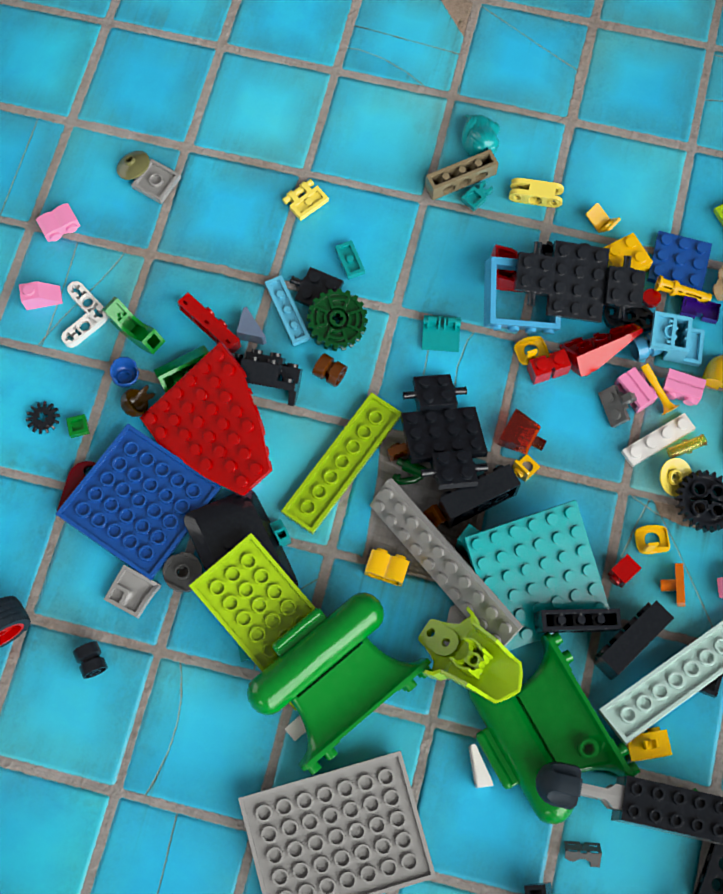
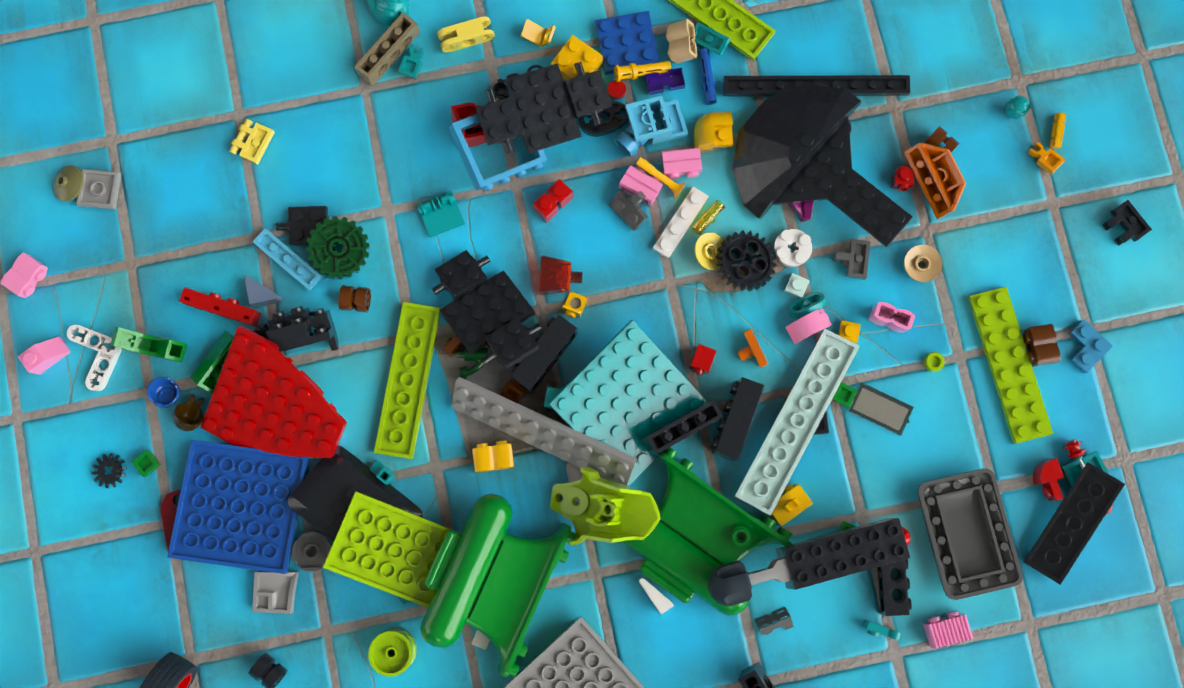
camera: 25 degrees left, 10 degrees up
(198, 698) = (380, 654): none -> lime wheel
(349, 259) = (322, 182): teal plate -> none
(533, 340) = (530, 180): yellow piece -> none
(594, 352) = (586, 168): red wedge -> none
(655, 547) = (727, 318): yellow piece -> none

